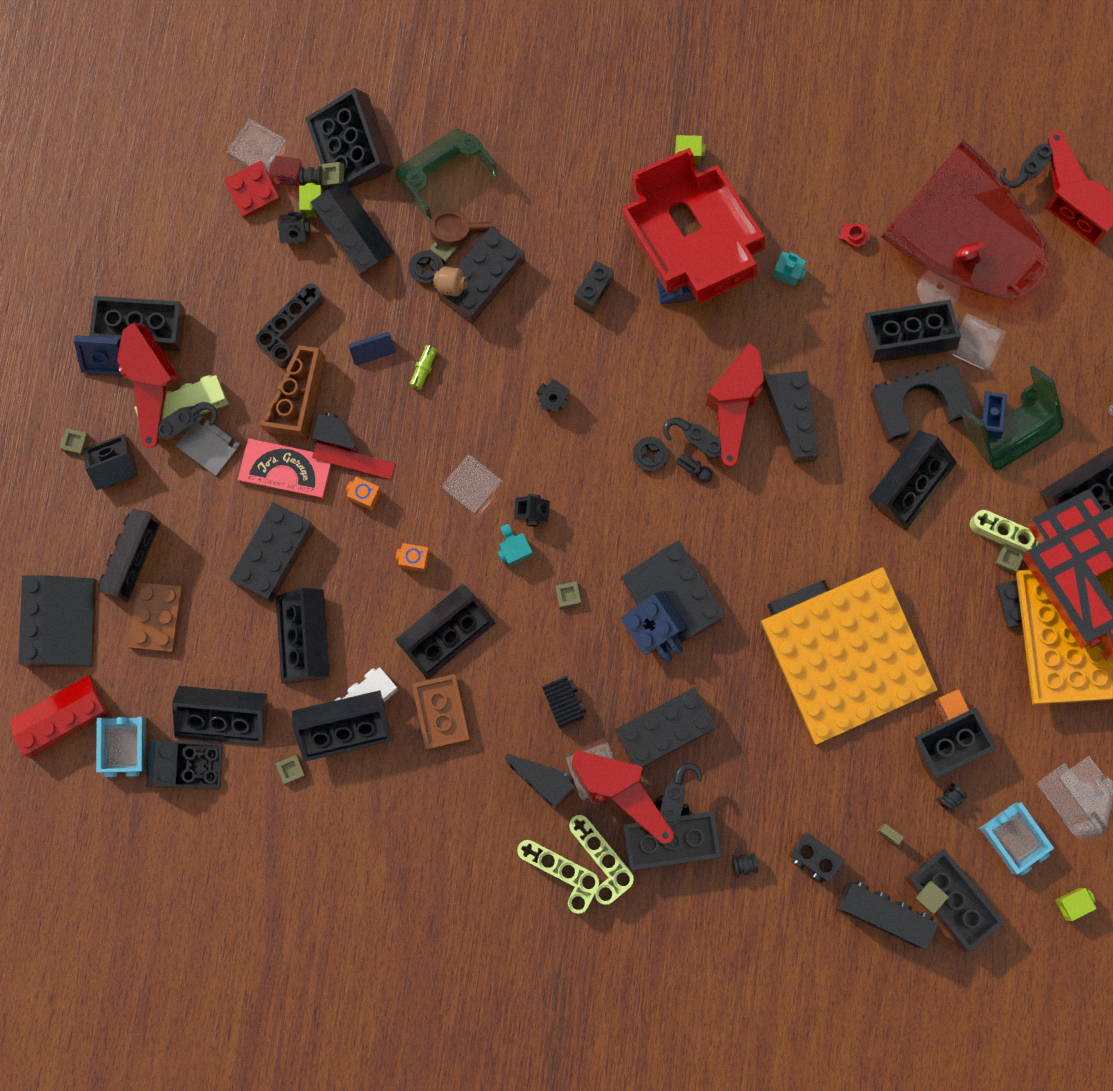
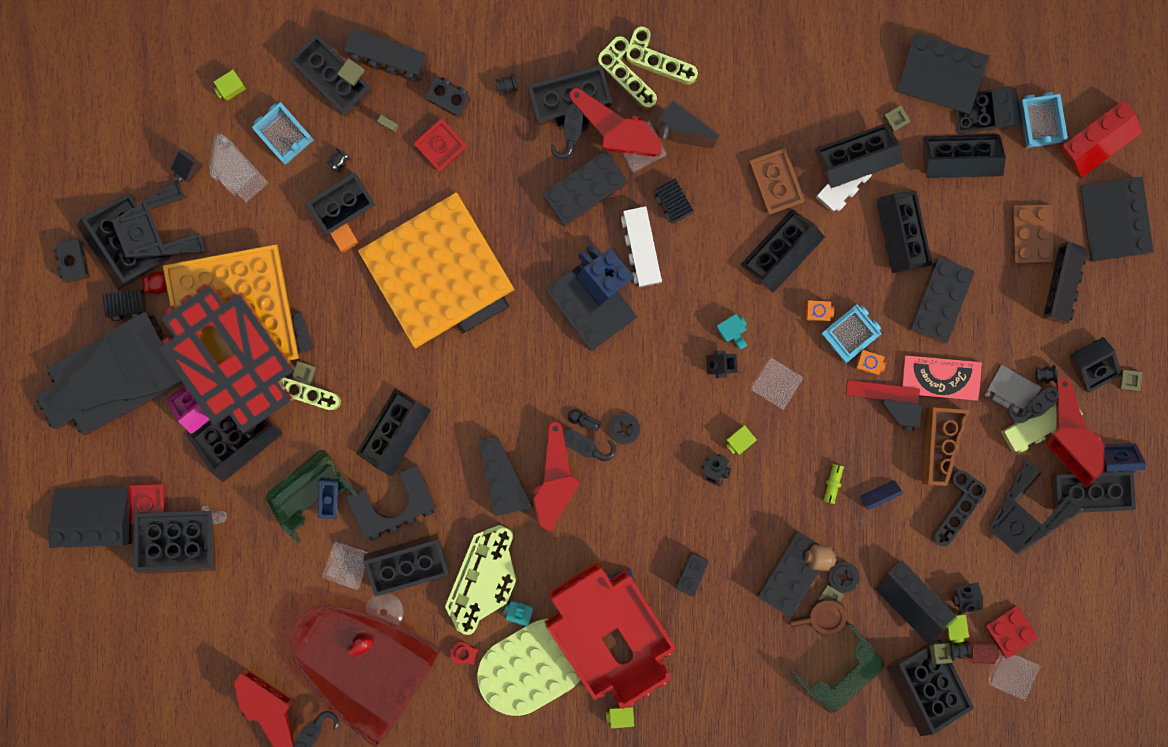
camera: 170 degrees right, 10 degrees up
(167, 457) = (1046, 374): none -> black bush
(226, 295) = (1018, 527): none -> black wing
(228, 812) = (943, 73): none -> black slope
(380, 528) = (851, 332): none -> window
(521, 425) = (740, 440): none -> lime brick
(568, 594) = (681, 296): olive tile -> none
(606, 654) = (642, 247): none -> white brick
(792, 208) = (525, 671): none -> yellowish green plate
(819, 308) = (487, 577): none -> yellowish green connector
(829, 802) = (440, 145): none -> red plate

